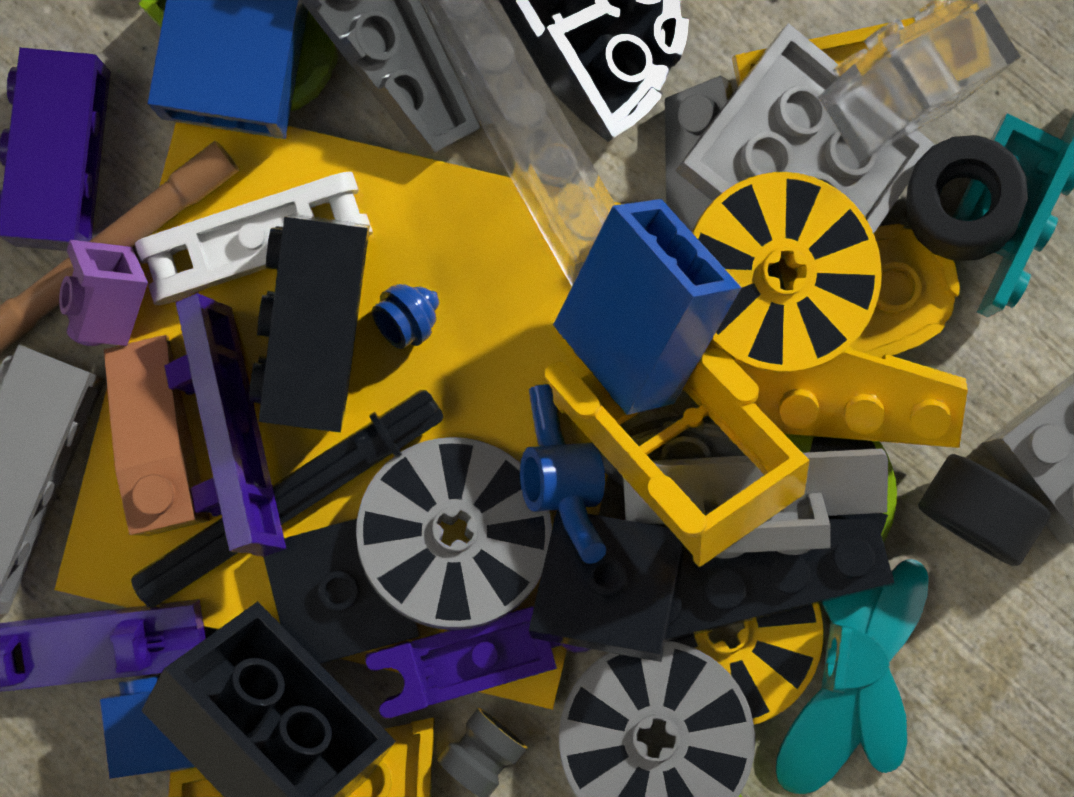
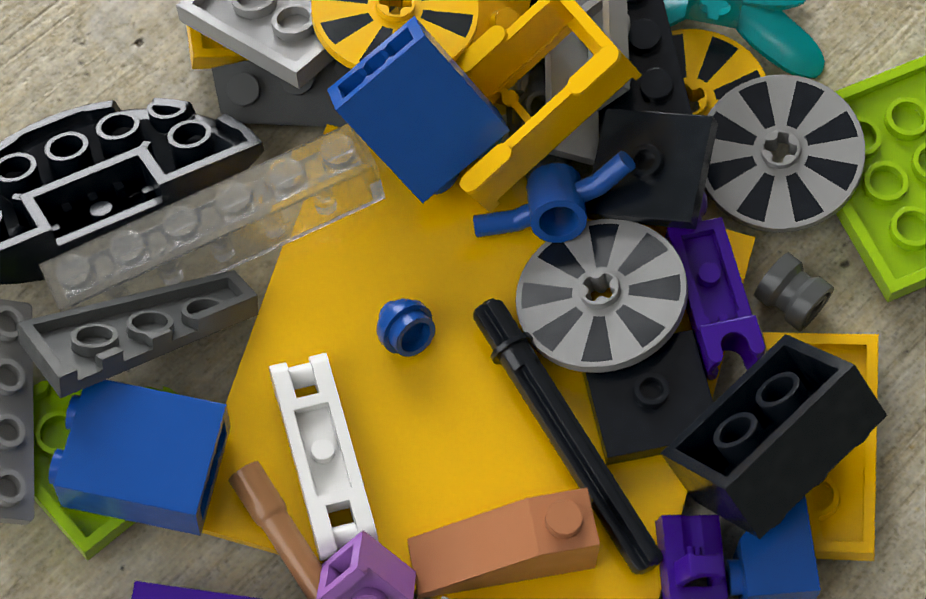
camera: 90 degrees left, 20 degrees down
(219, 379) = (444, 481): dark purple hinge -> none
(309, 322) = (412, 373): black brick -> none

